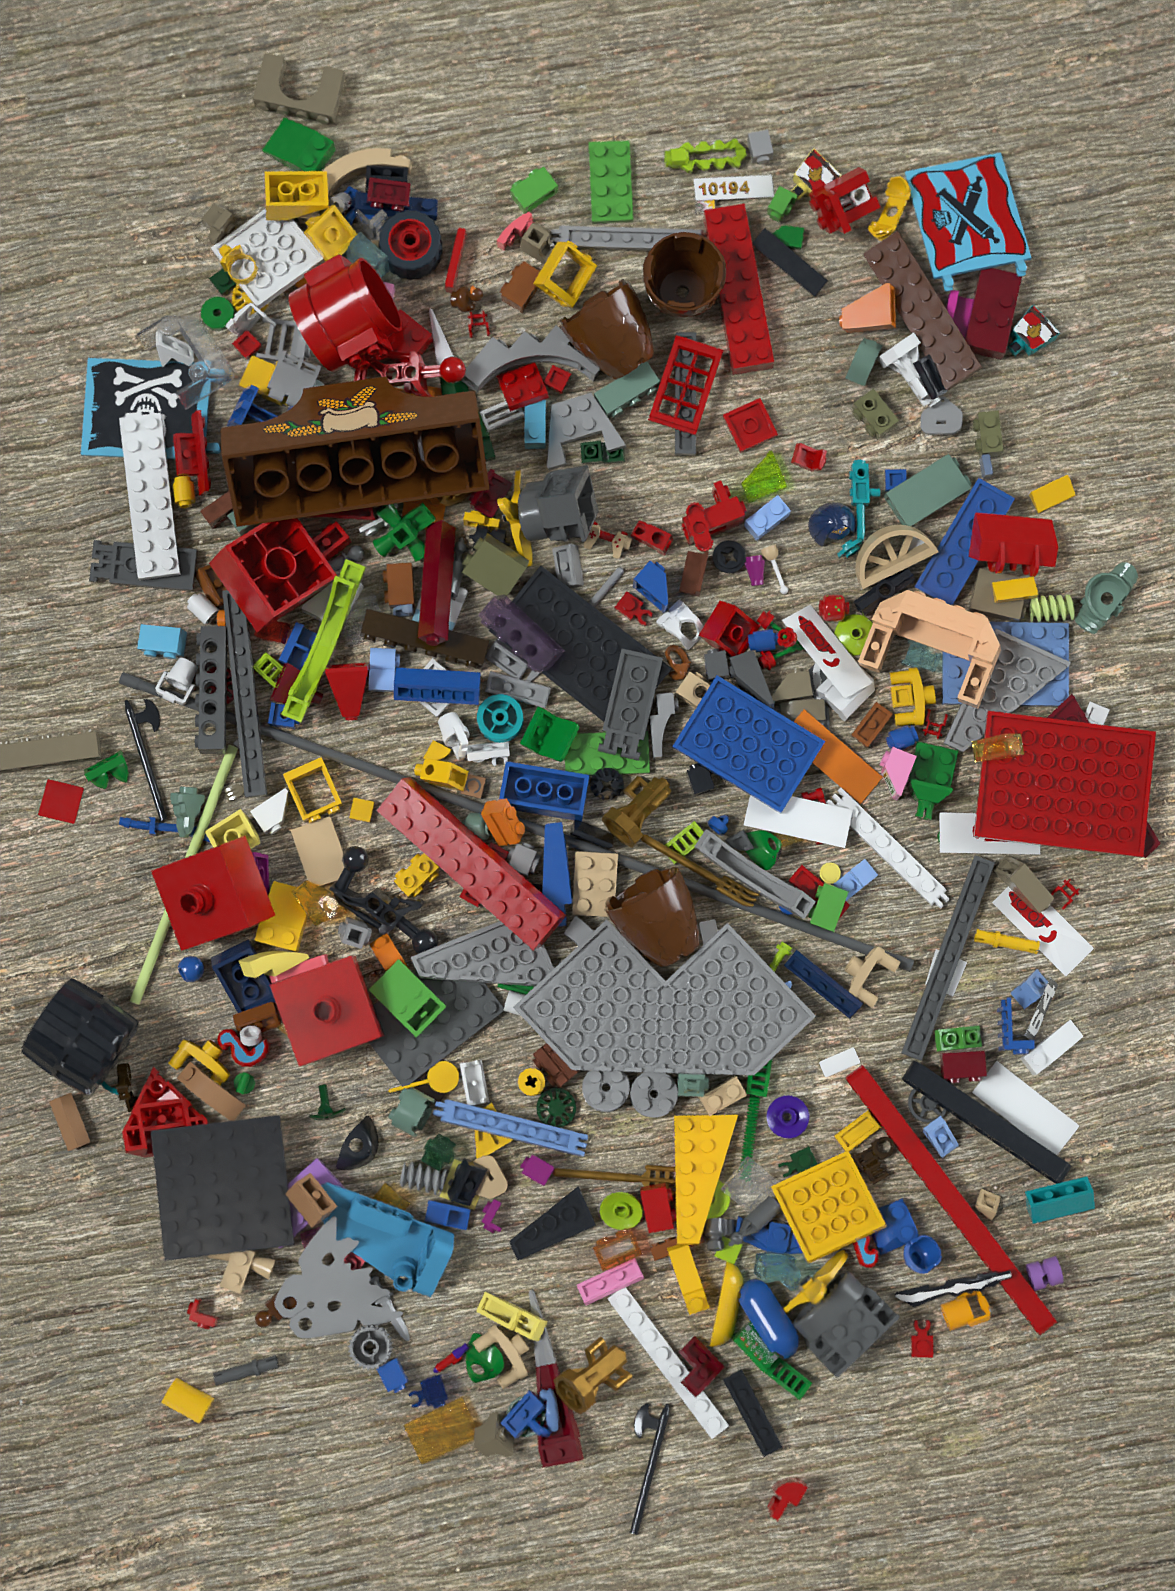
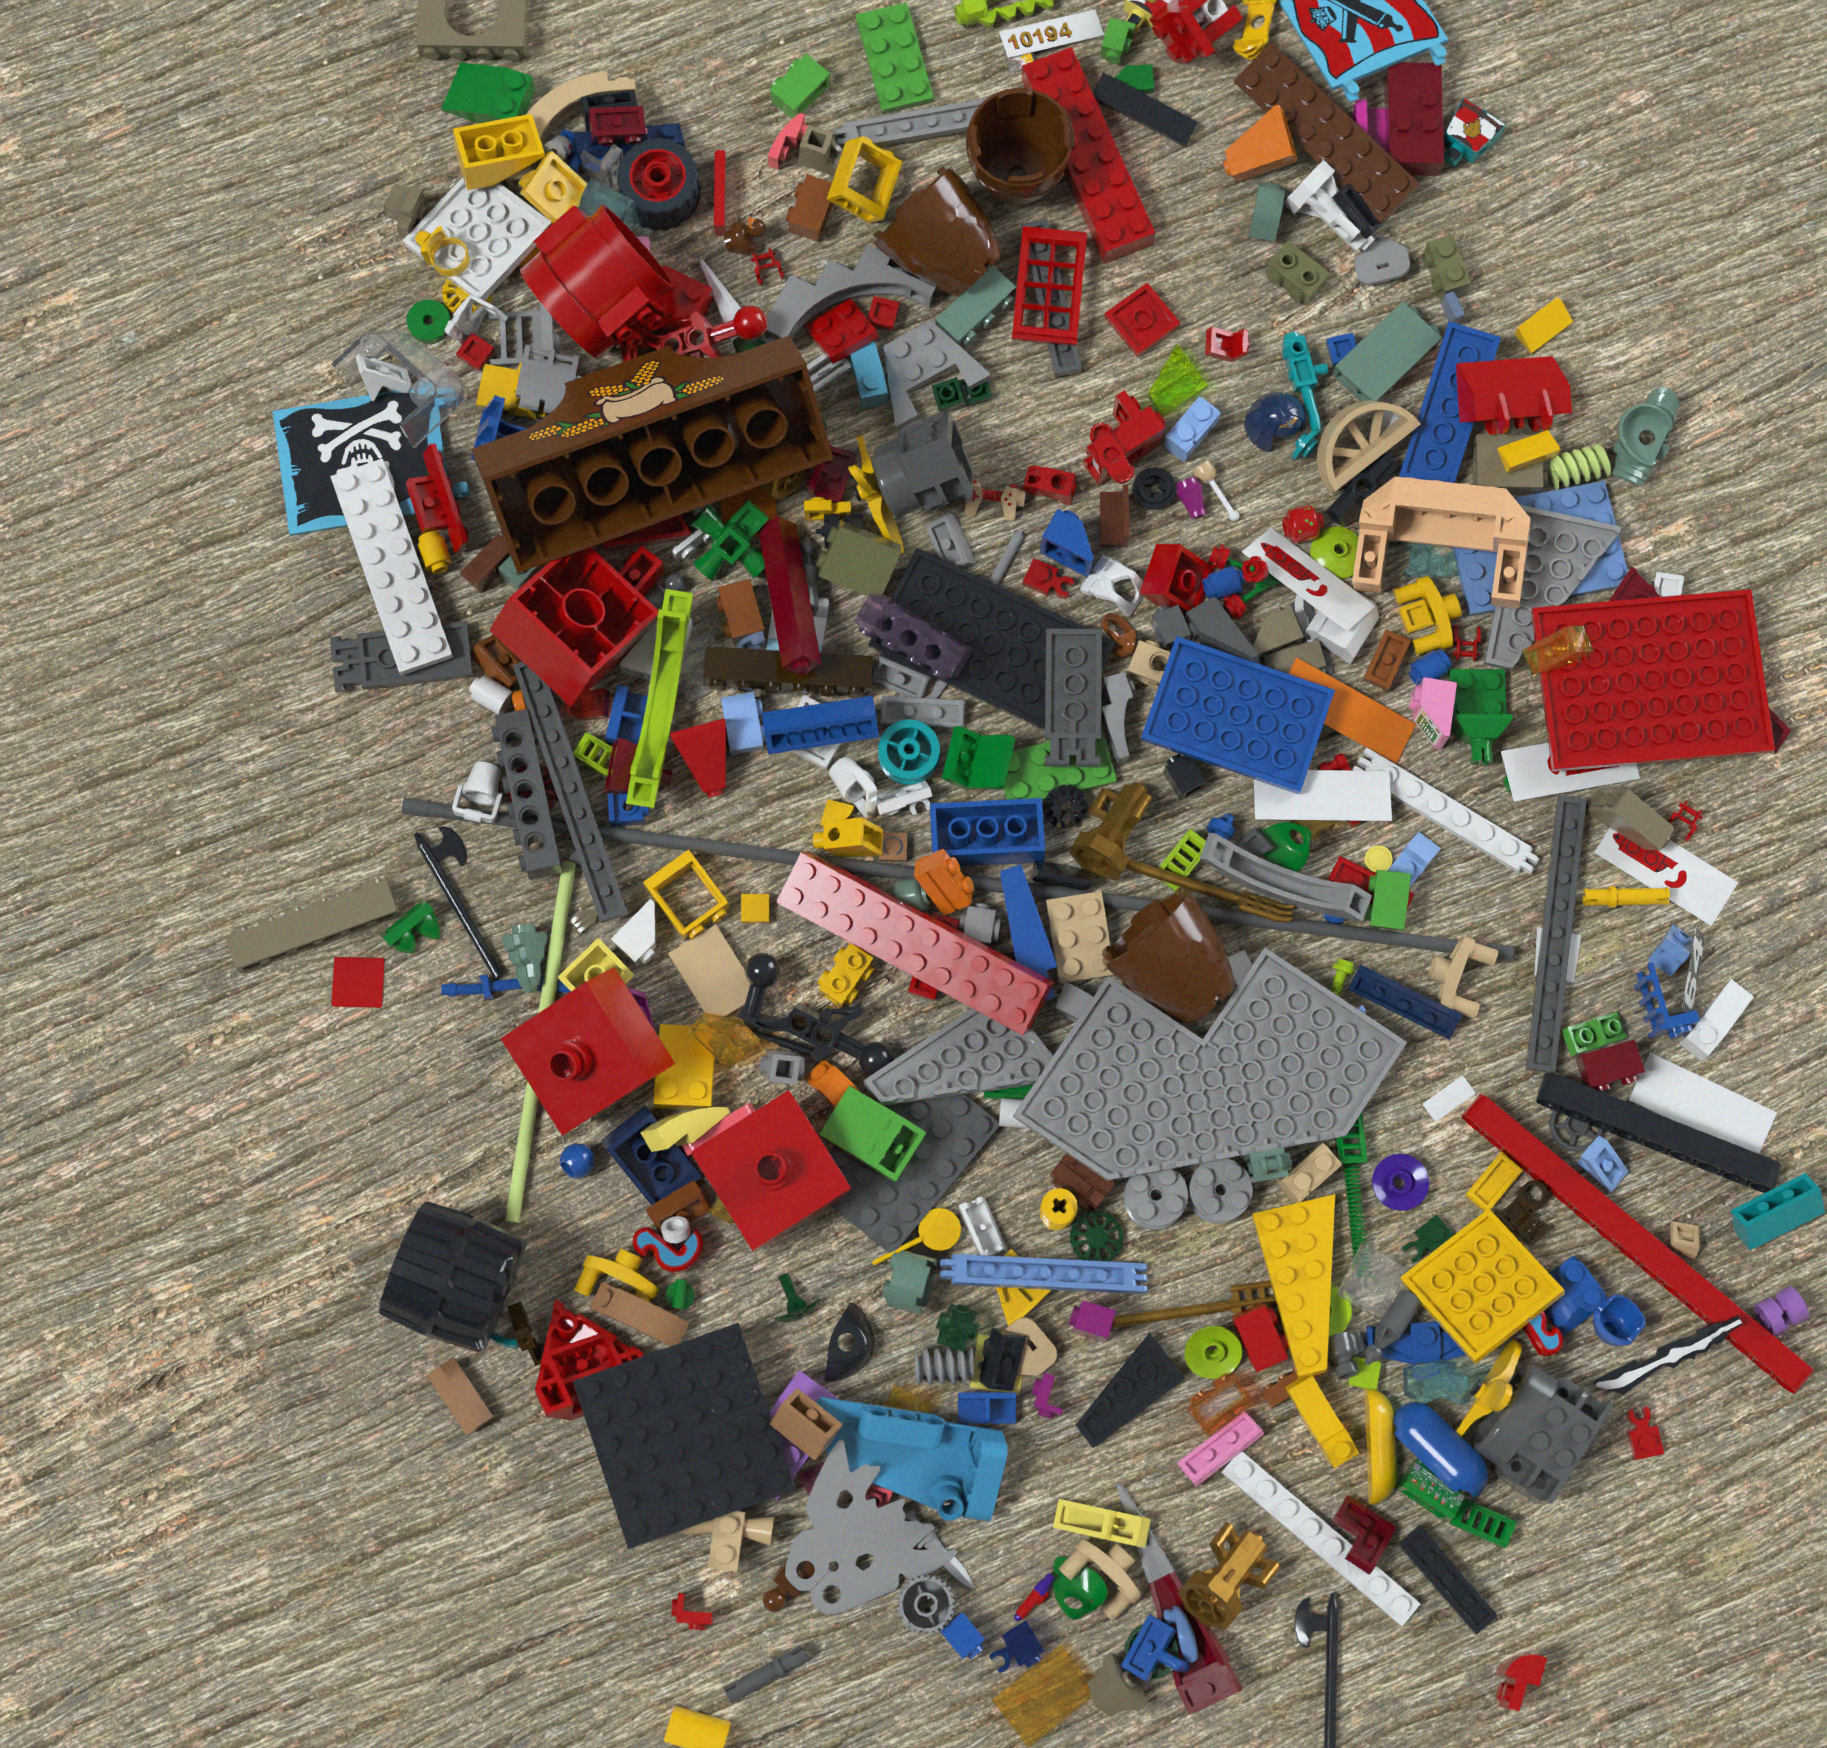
camera: 15 degrees left, 5 degrees down
(162, 641) = (447, 746): medium azure brick -> none
(222, 282) = (427, 280): dark green plate -> none
(959, 1314) = (1685, 1386): light orange piece -> none

